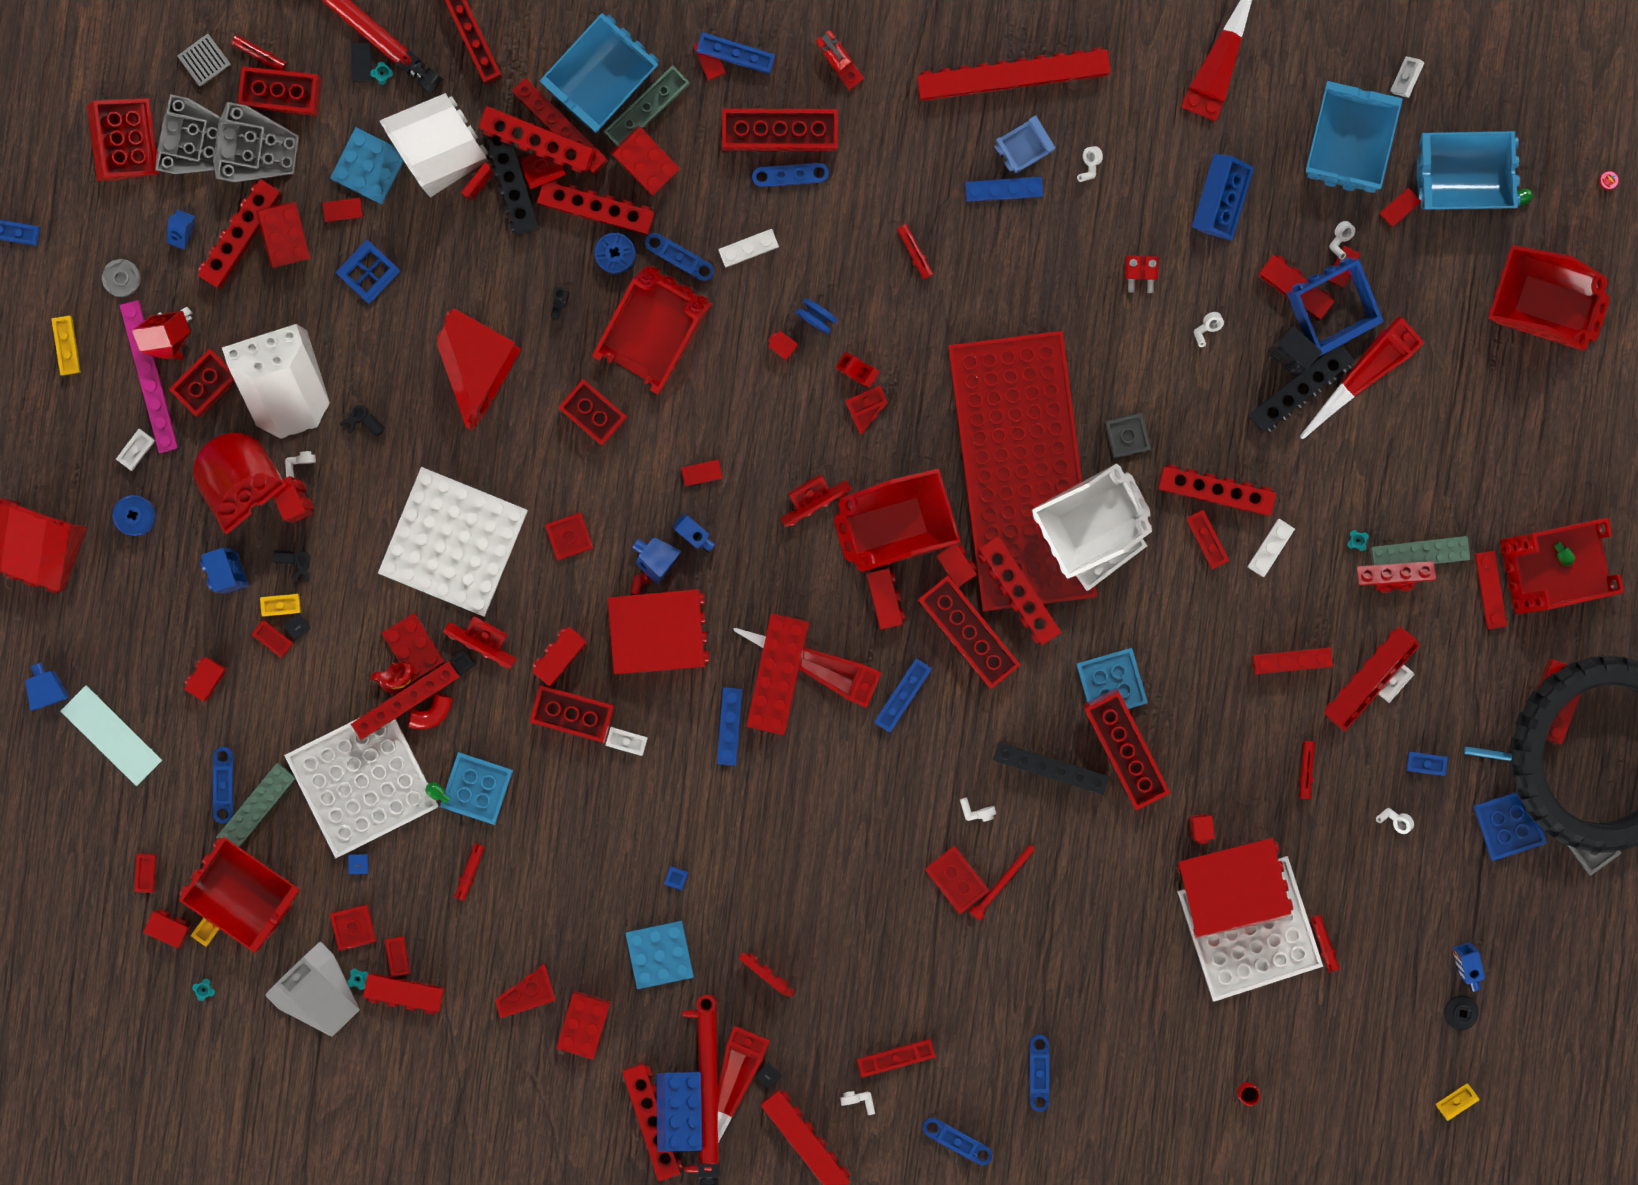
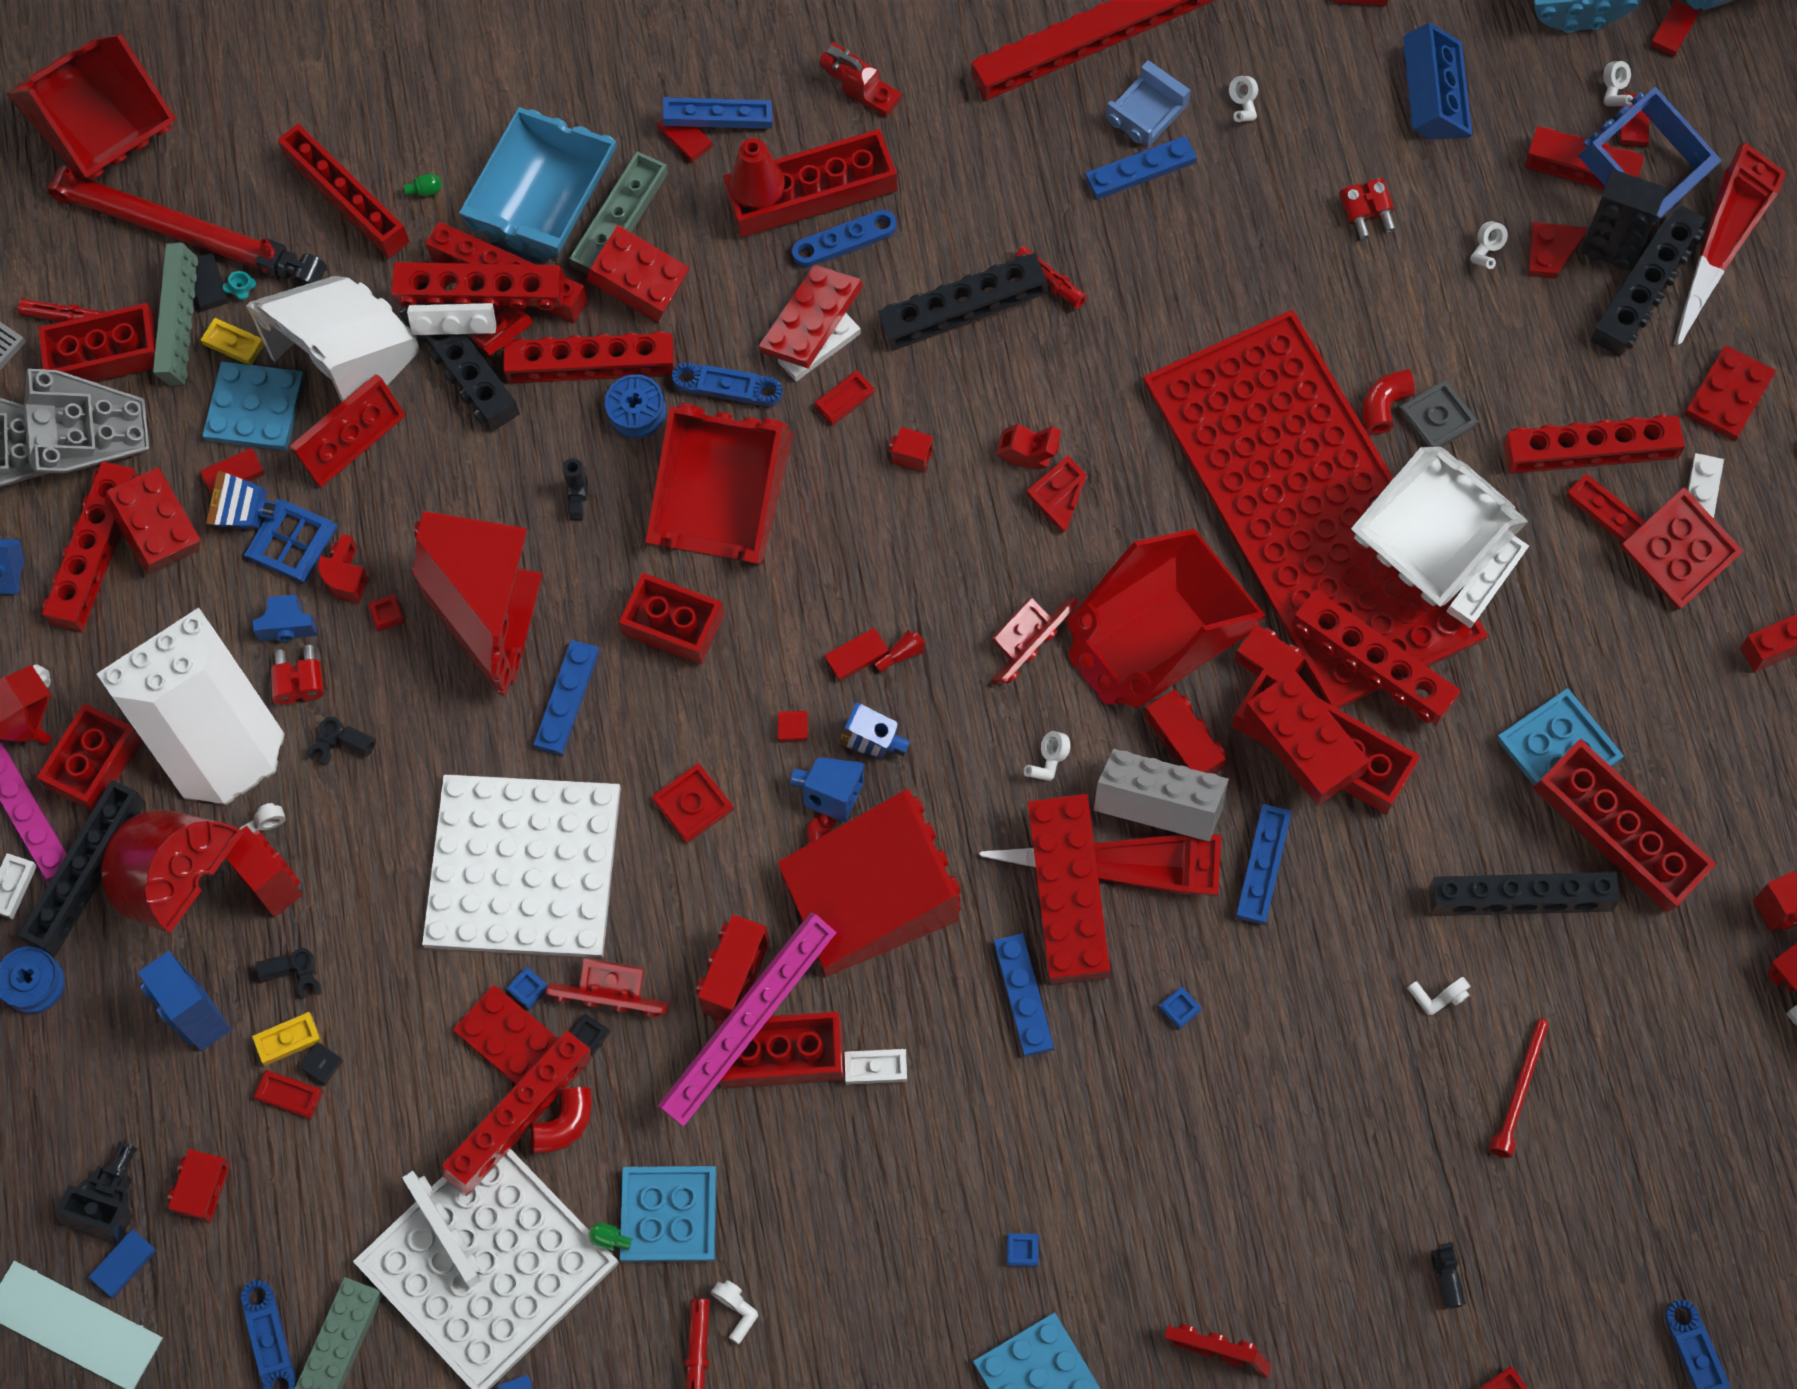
camera: 15 degrees left, 20 degrees down
(144, 670) = (101, 1200): none -> black brick
(149, 709) = (122, 1263): none -> blue tile
(182, 455) = (80, 870): none -> black brick
(334, 84) = (175, 314): none -> sand green piece
(341, 237) = (239, 504): none -> torso
(343, 762) = (449, 1238): none -> white plate
(346, 372) = (297, 680): none -> red piece
(349, 328) = (284, 620): none -> blue brick
(365, 114) = (232, 341): none -> yellow plate
(390, 307) = (338, 573): none -> red brick
(394, 678) = (490, 1085): red hair -> none
(415, 343) = (386, 612): none -> red tile
(424, 211) = (348, 430): none -> red plate
(434, 621) = (527, 988): none -> blue tile
(477, 182) = (412, 371): red tile -> none
(497, 848) = (730, 1296): none -> white plate
(512, 440) = (566, 697): none -> blue plate
(513, 157) = (452, 319): none -> white plate
(524, 39) = (424, 185): none -> green cylinder
(557, 693) = (746, 1019): none -> dark pink plate
(646, 507) = (793, 726): none -> red tile
(735, 479) = (905, 648): none -> red cone
(743, 130) = (756, 176): none -> red cone
(749, 228) = (811, 316): none -> red plate
(752, 291) = (844, 398): none -> red tile
(802, 578) = (1054, 749): none -> white plate
(816, 316) = (945, 392): blue wheel -> none
(820, 766) = (1180, 1008): none -> blue tile
(854, 634) = (1161, 794): none -> light grey brick
(899, 257) = (954, 313): none -> black brick
(914, 981) = (1449, 1283): none -> black bar
(953, 633) = (1306, 737): none -> red brick
(957, 879) = (1451, 1108): red tile -> none
(1094, 412) = (1380, 398): none -> red cylinder
(1239, 581) = (1681, 548): none -> red plate
(1250, 341) = (1552, 247): none -> red wing
(1320, 483) = (1730, 392): none -> red plate

